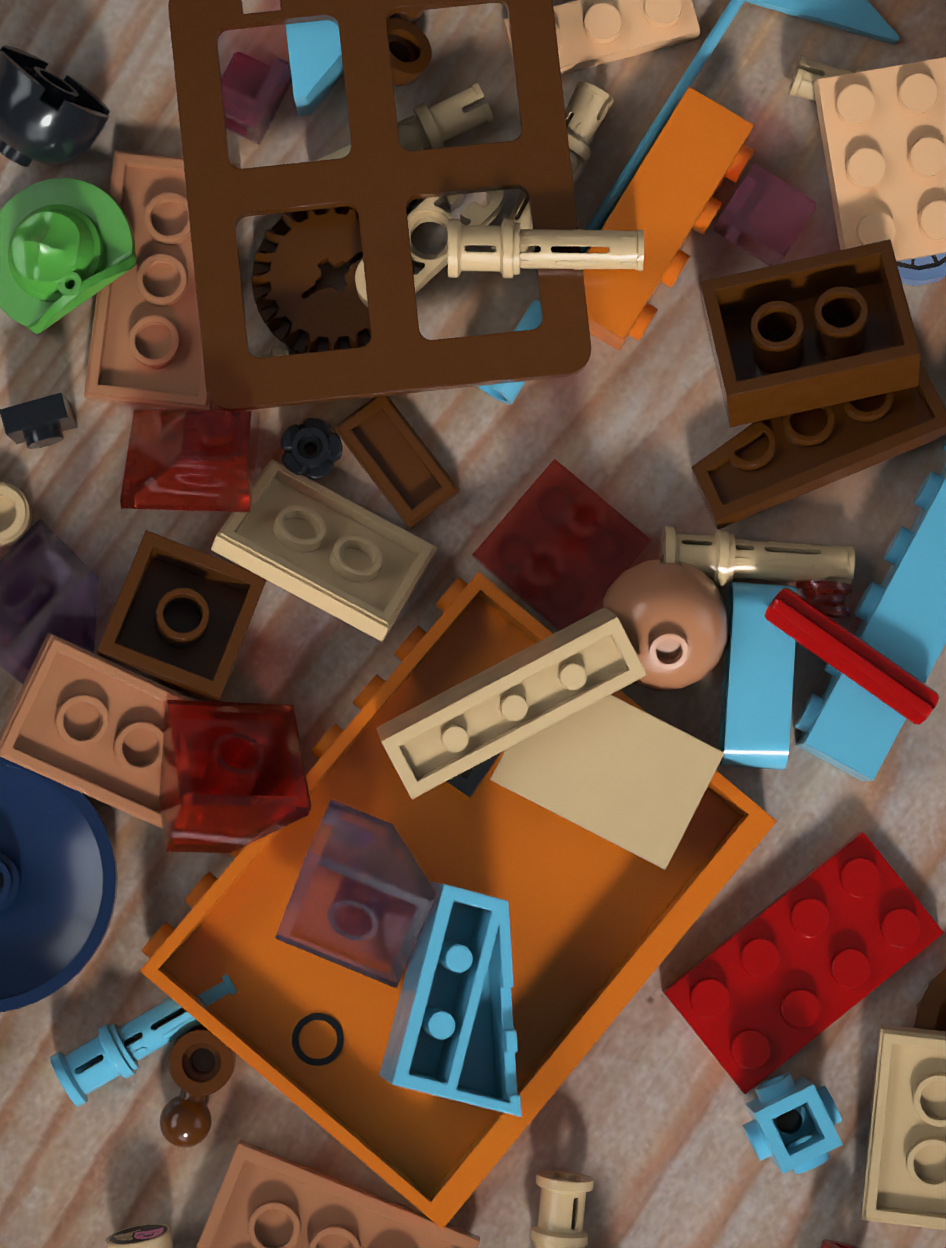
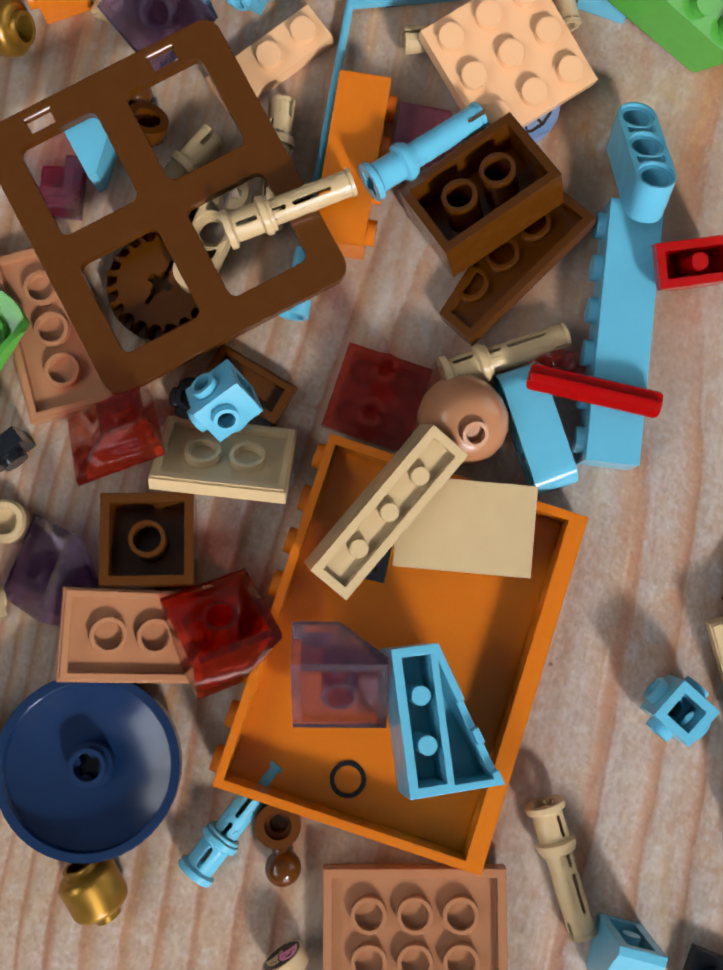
camera: 15 degrees left, 0 degrees up
(353, 472) = (222, 401): none -> medium azure brick
(725, 248) = (405, 159): none -> medium azure pin
(802, 962) = (638, 601): red plate -> none

